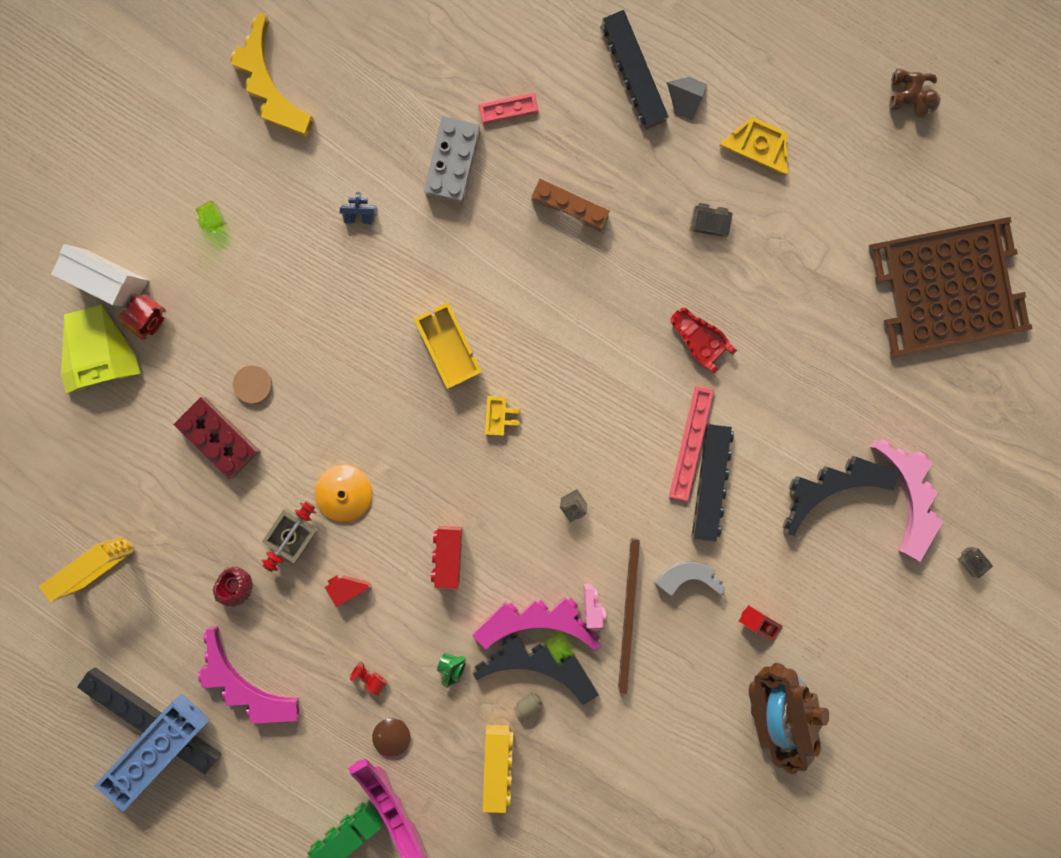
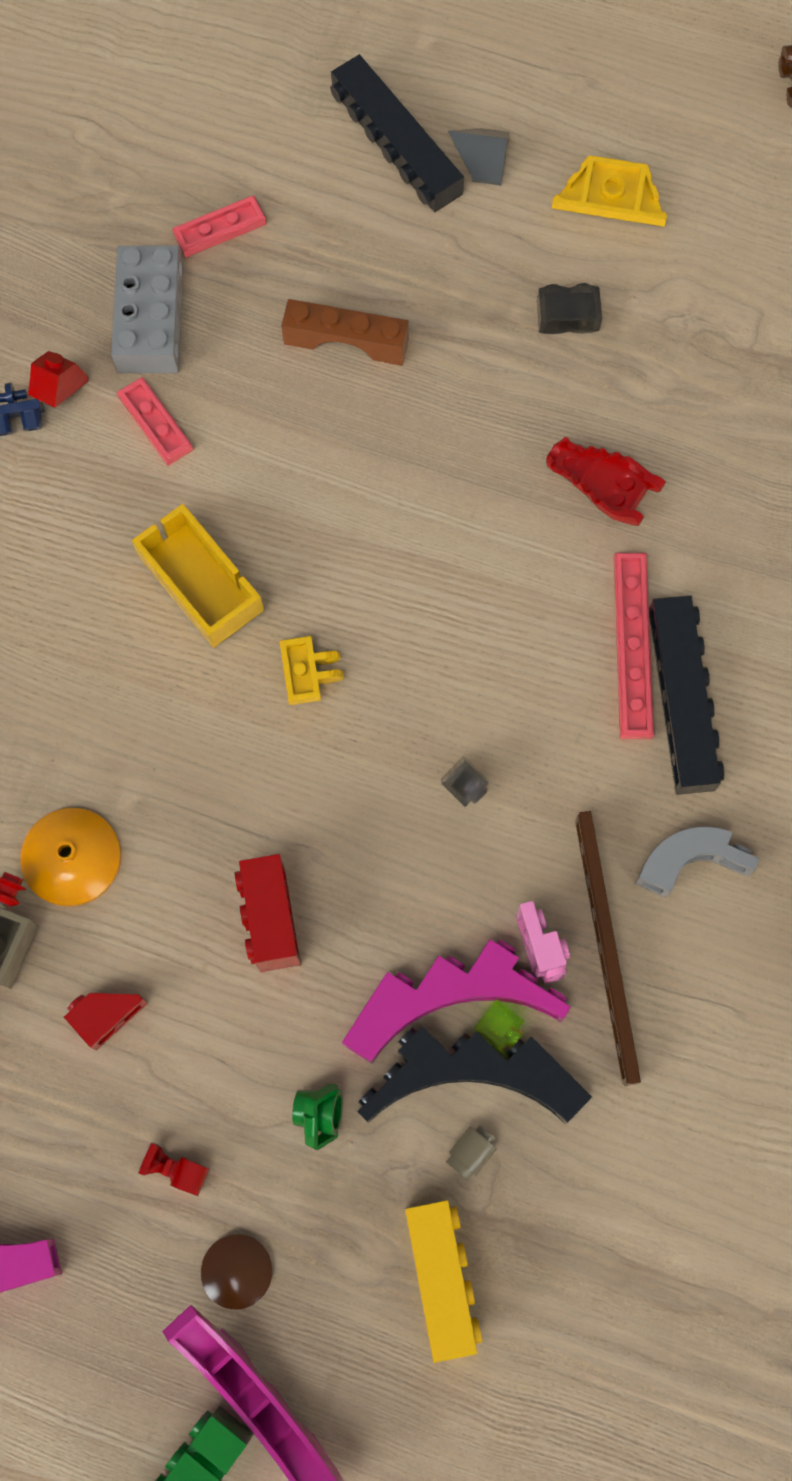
camera: 15 degrees left, 15 degrees down
(387, 198) = (54, 378): none -> red slope
(442, 234) = (154, 421): none -> coral tile

